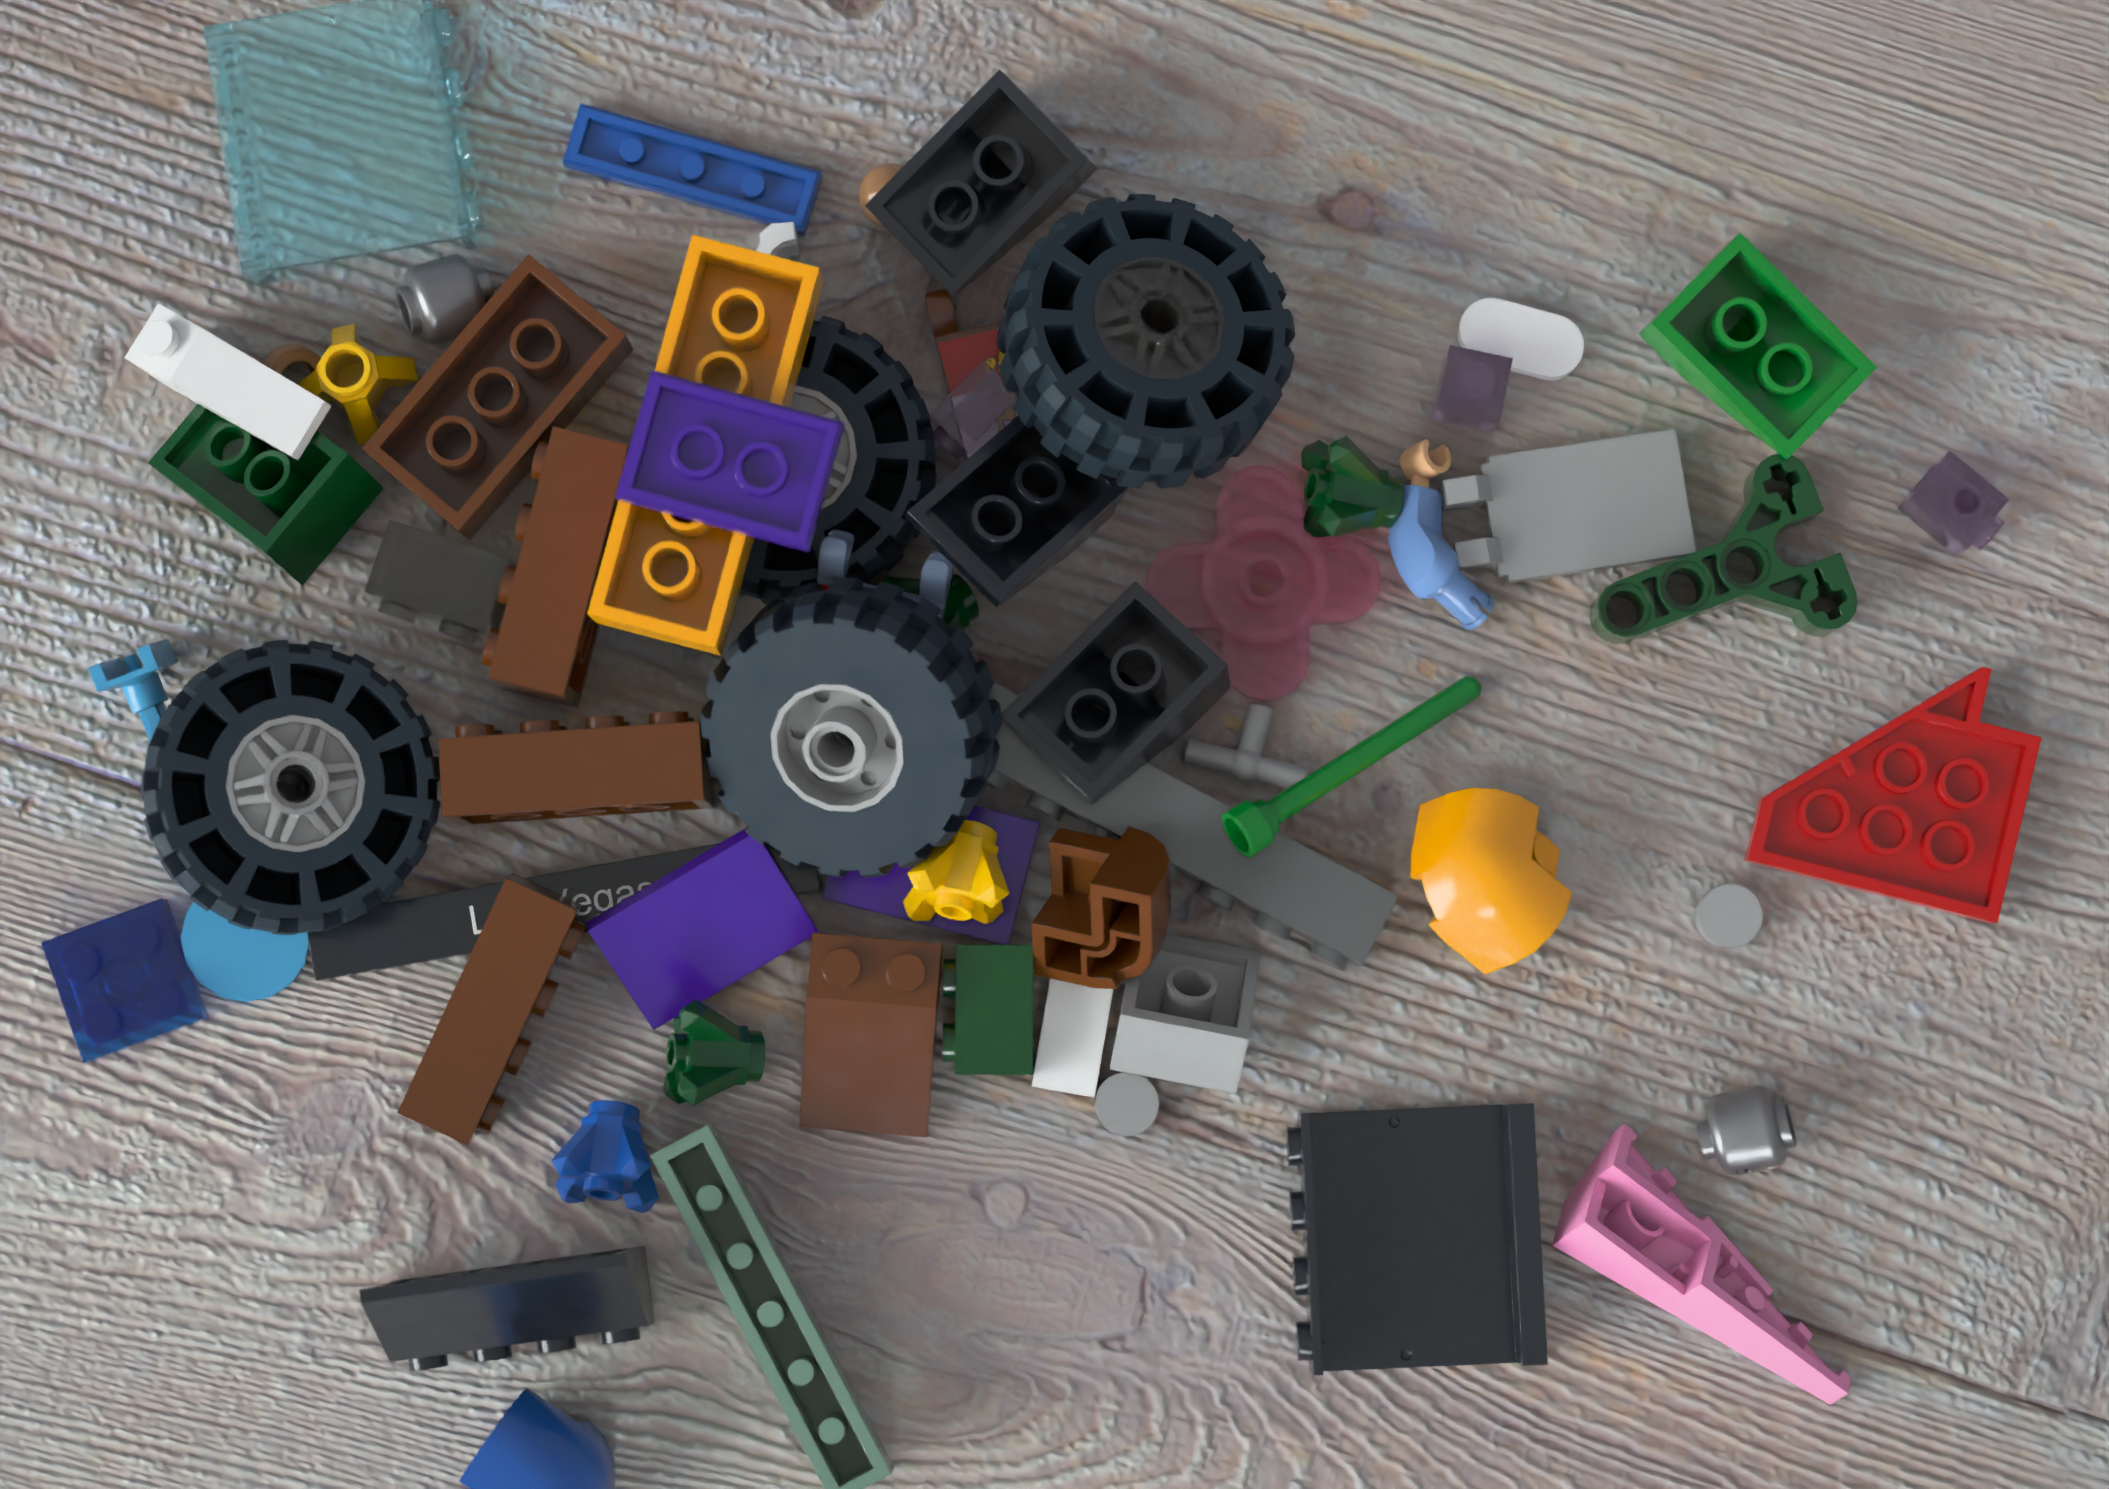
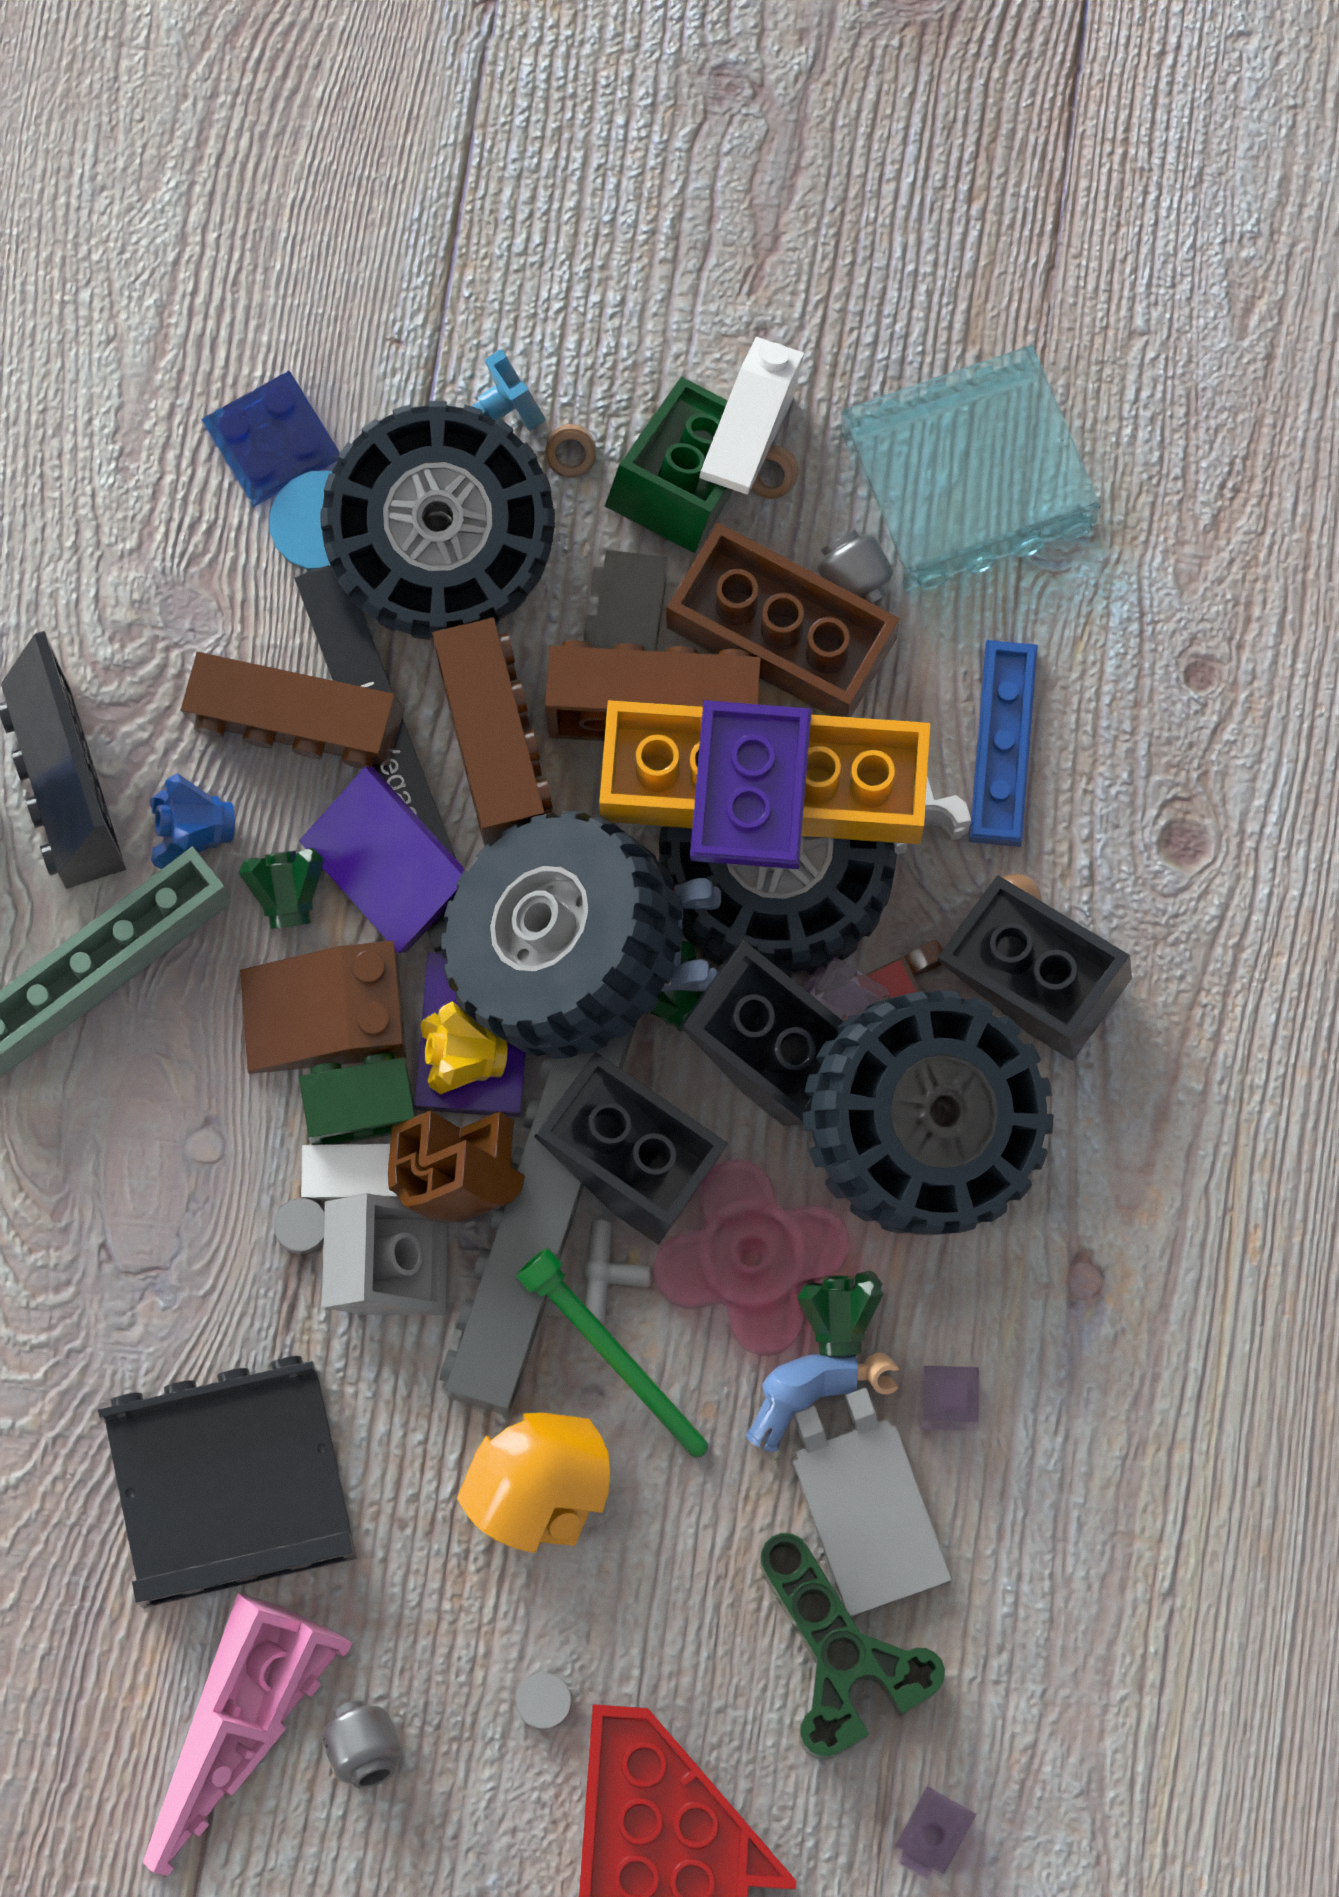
camera: 80 degrees right, 10 degrees down
(194, 615) = (566, 432): none -> medium nougat piece
(357, 379) = (777, 514): yellow rock -> none
(1537, 340) = (1003, 1437): white tile -> none
(1757, 347) = (1032, 1632): green slope -> none

